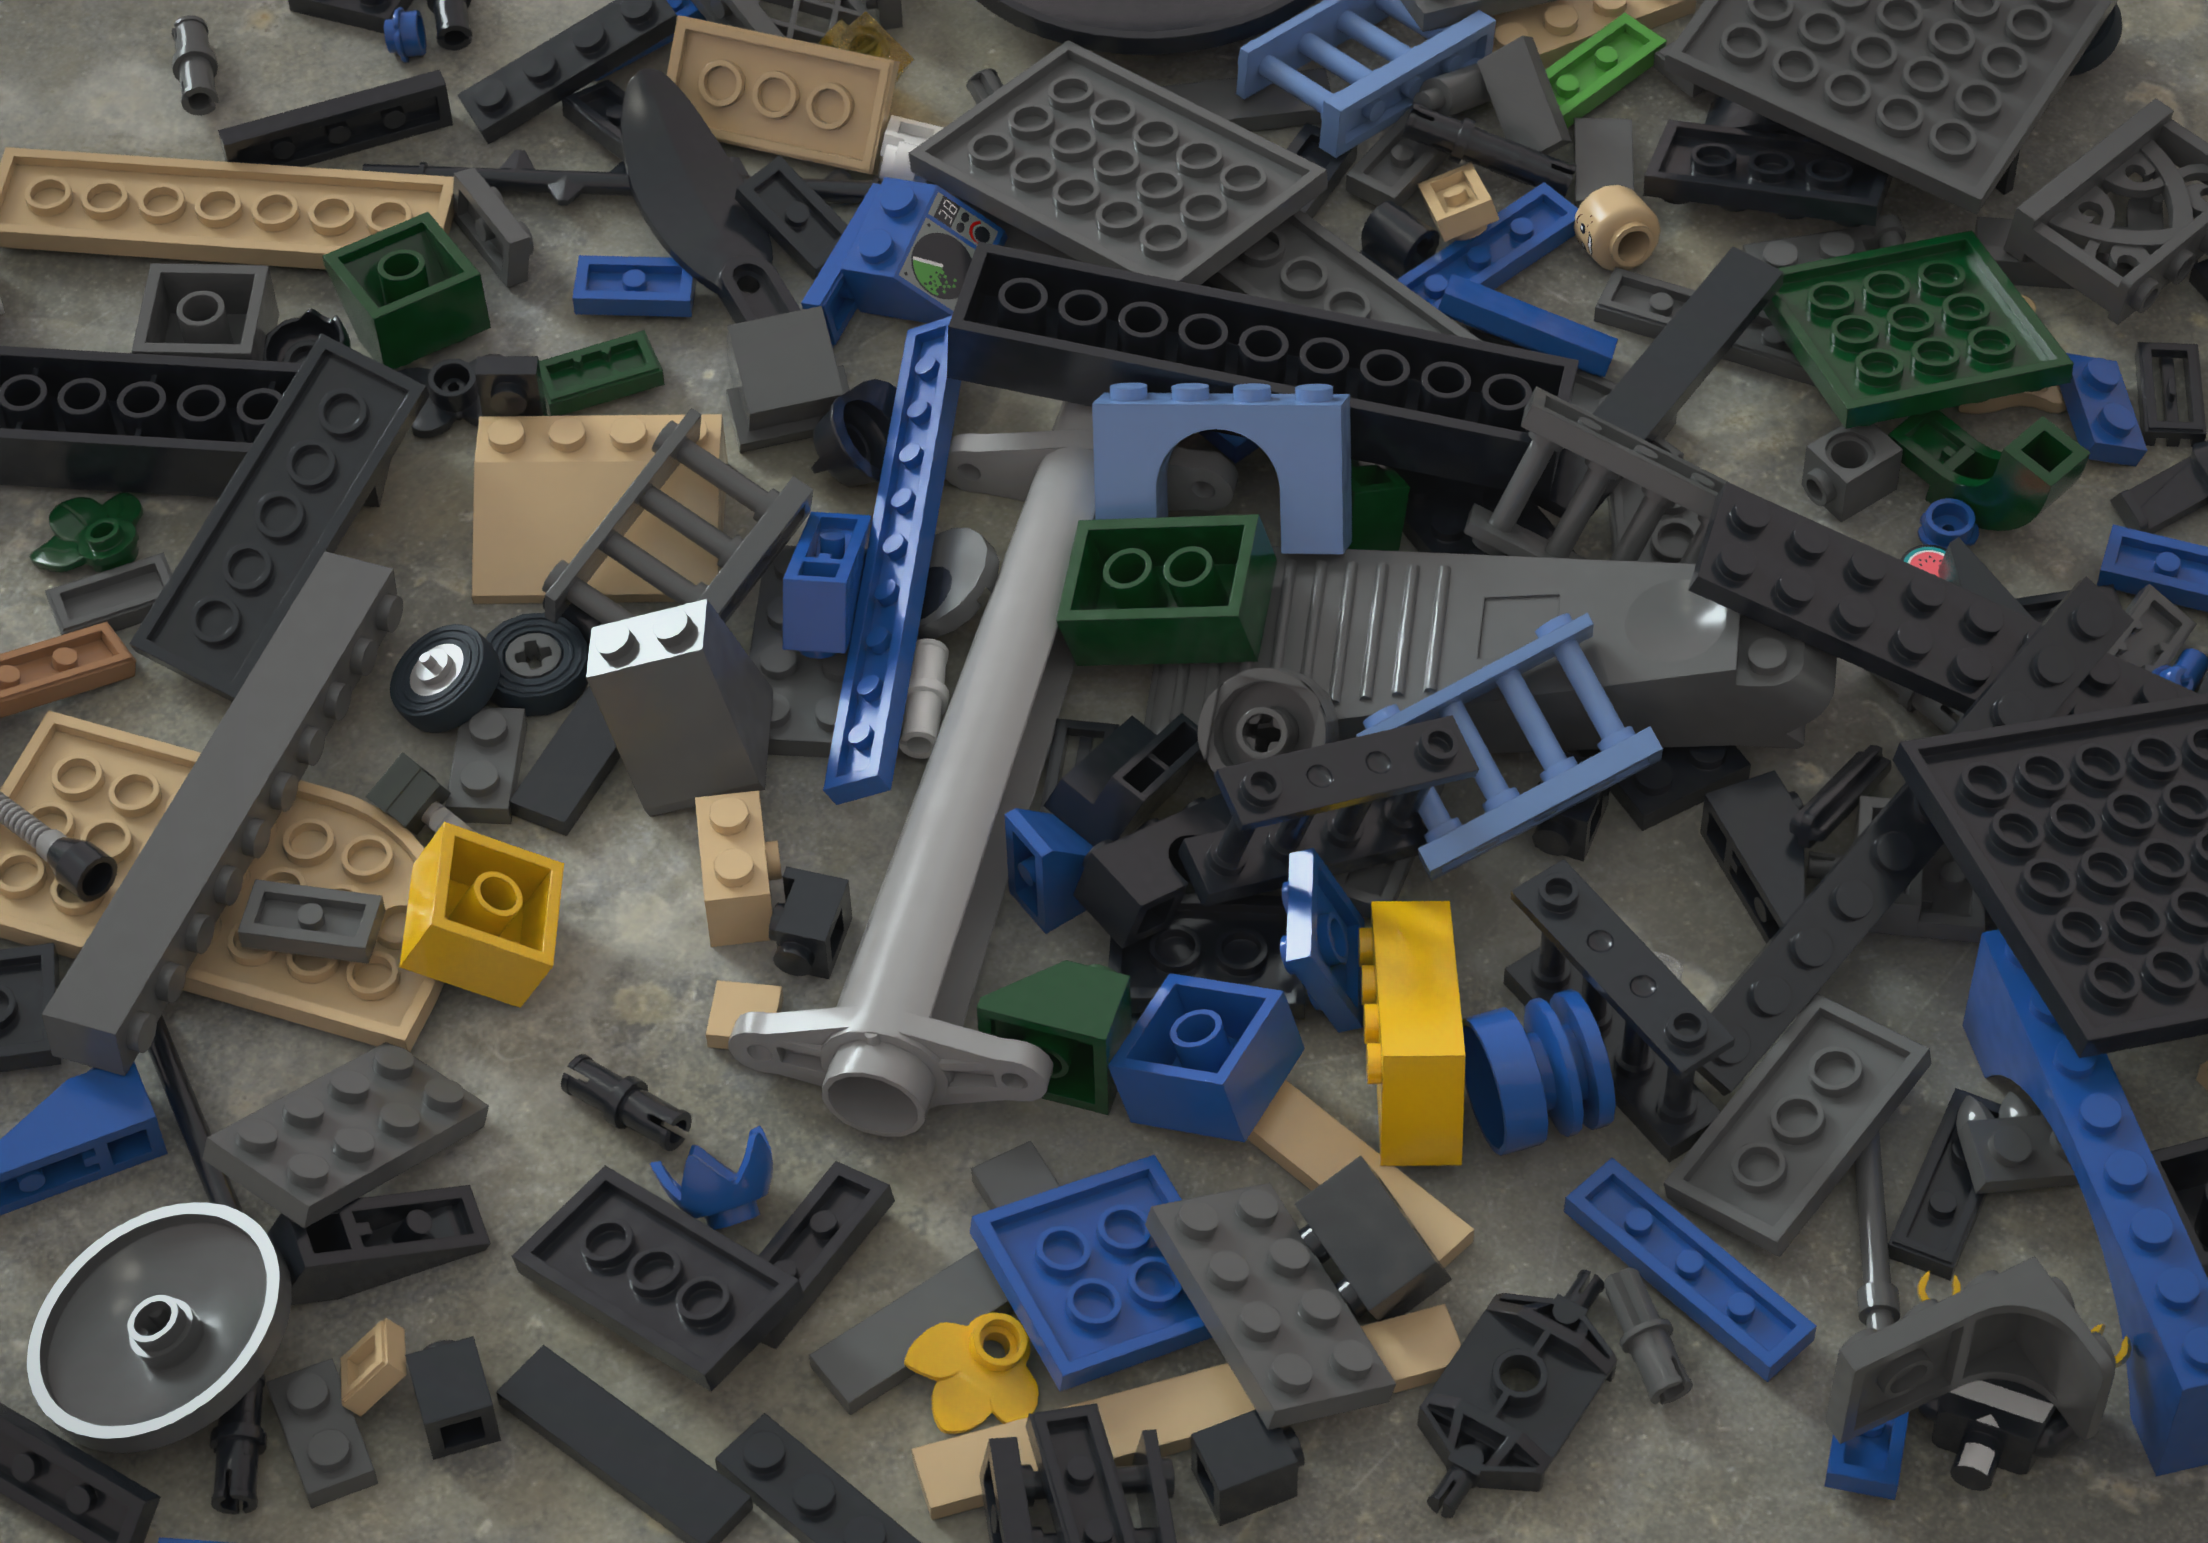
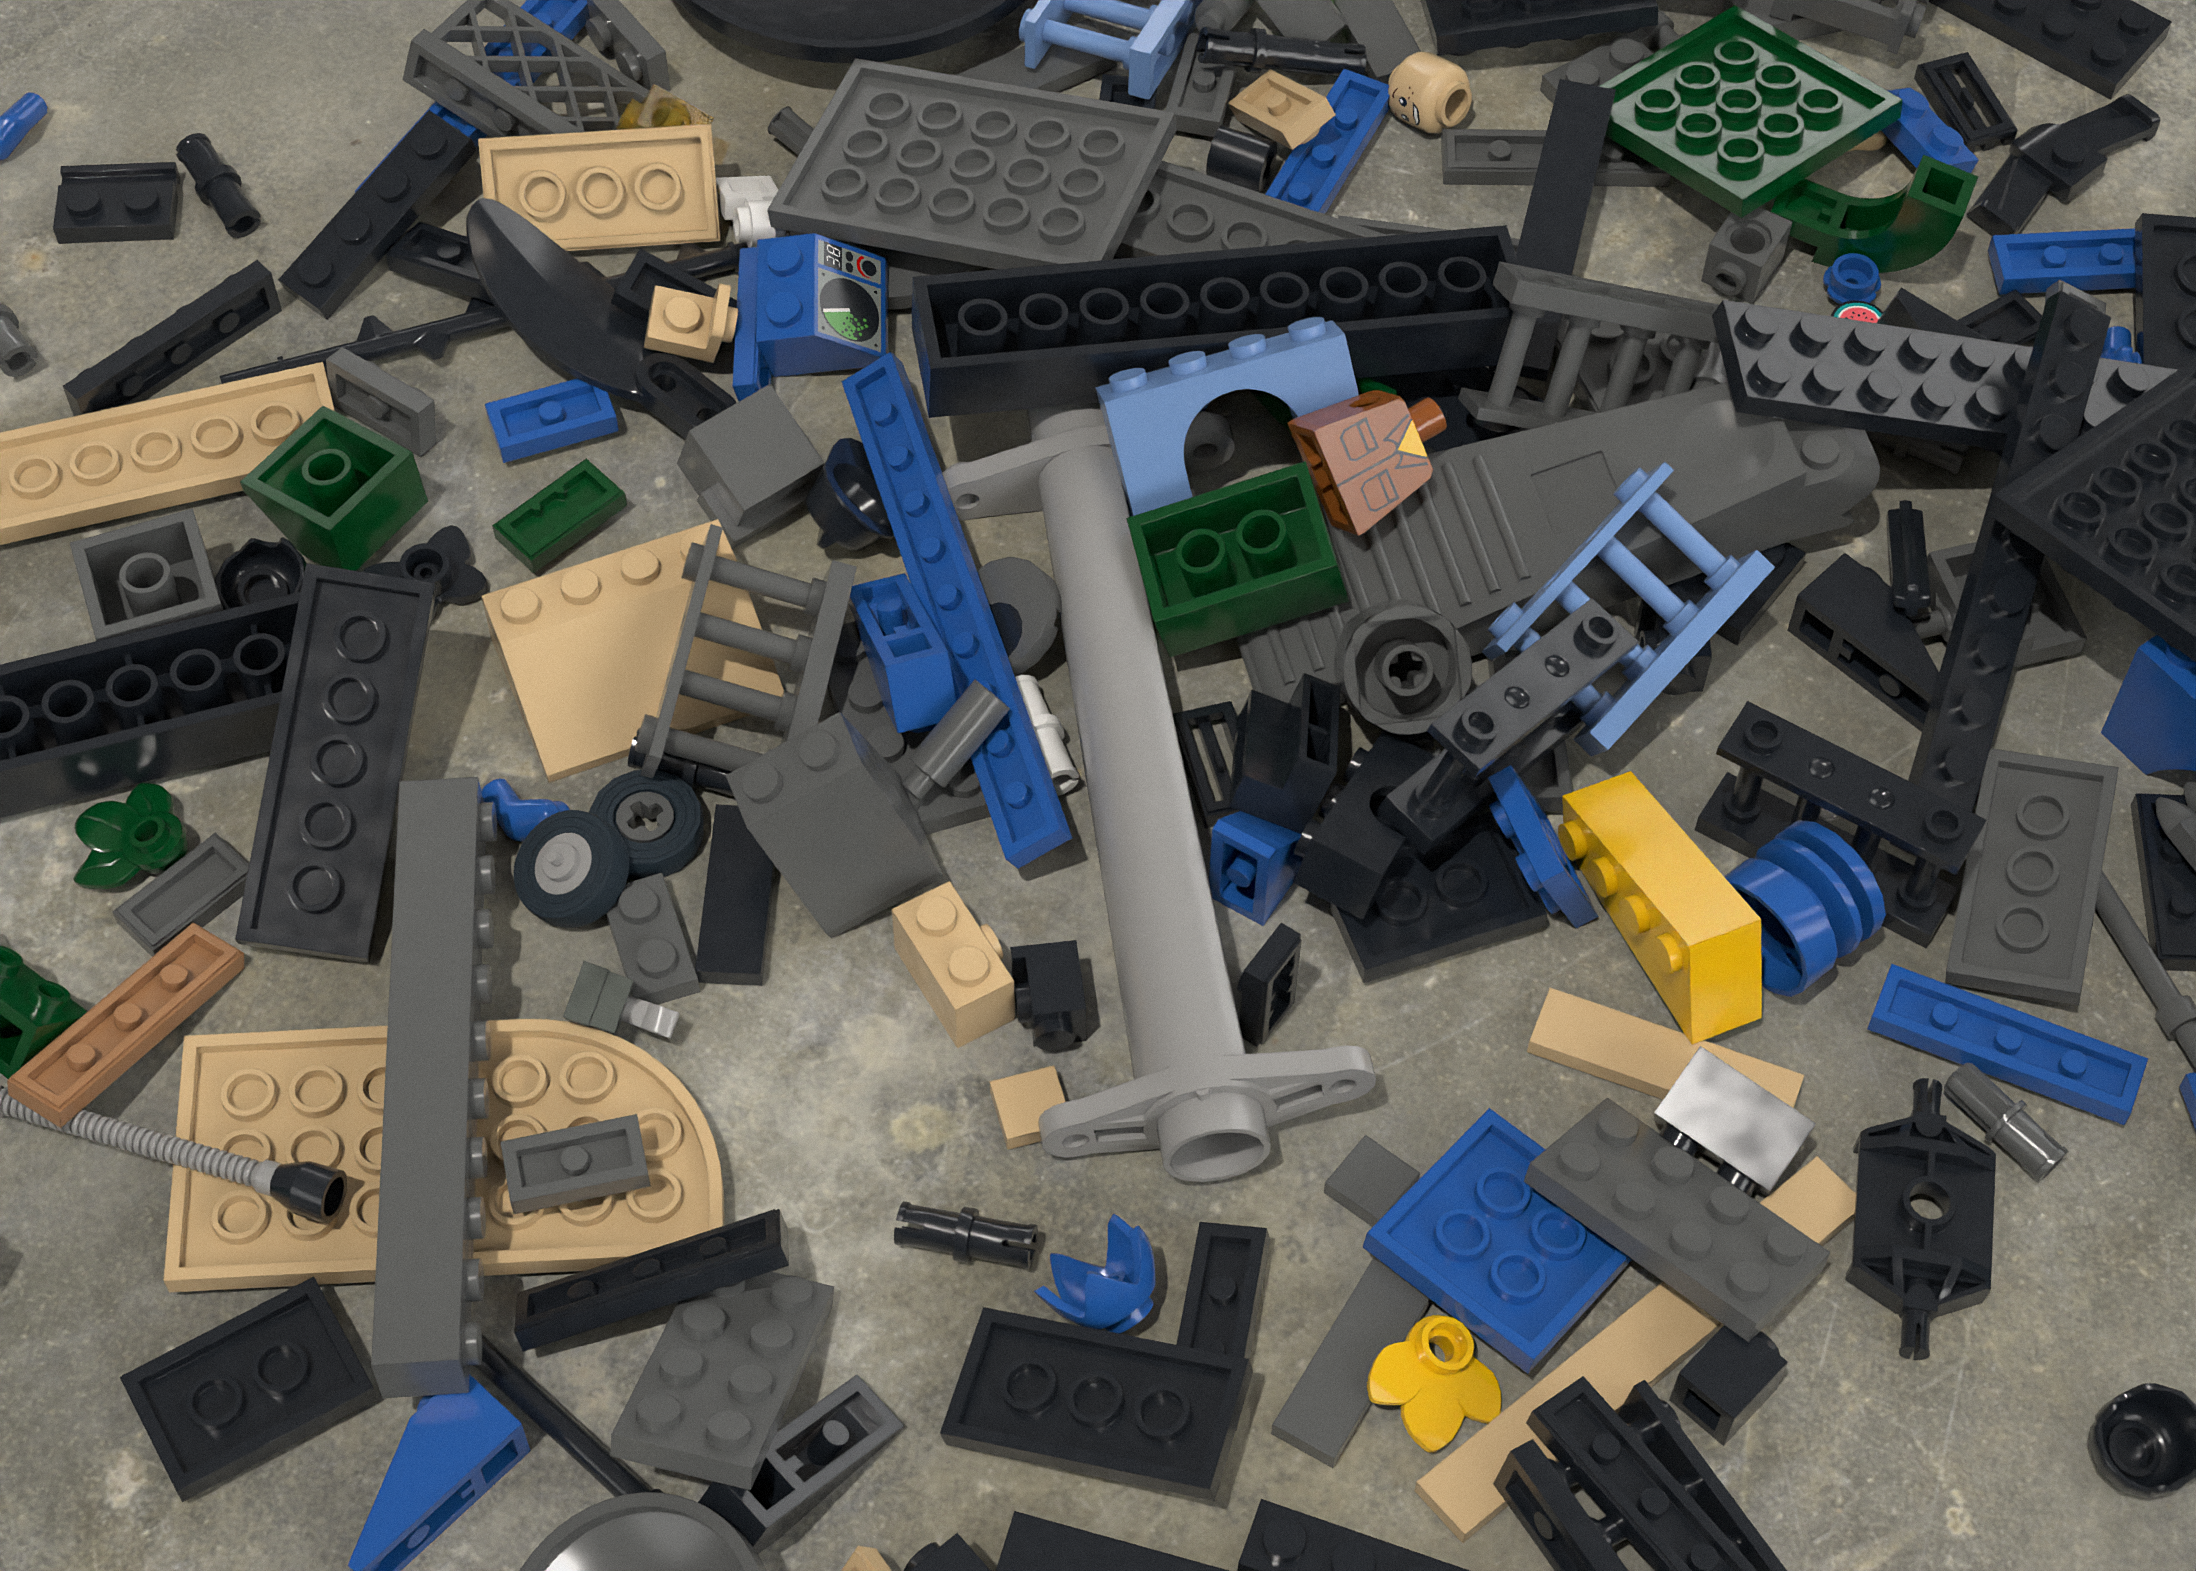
camera: 25 degrees left, 5 degrees up
(329, 1039) = (651, 1279): none -> black tile
(405, 34) = (193, 234): blue plate -> none
(423, 613) = (515, 815): none -> blue arm
(482, 915) = (743, 1098): yellow brick -> none
(510, 386) = (501, 558): black plate -> none
(792, 235) = (690, 322): none -> tan bracket
(830, 669) = (955, 739): none -> dark grey cylinder
(999, 960) = (1269, 985): none -> black plate
(1076, 1018) = (1366, 1003): dark green slope -> none
(1207, 1057) = (1496, 998): blue brick -> none
(1327, 527) = (1367, 454): none -> torso
(1527, 325) = (1401, 205): blue tile -> none

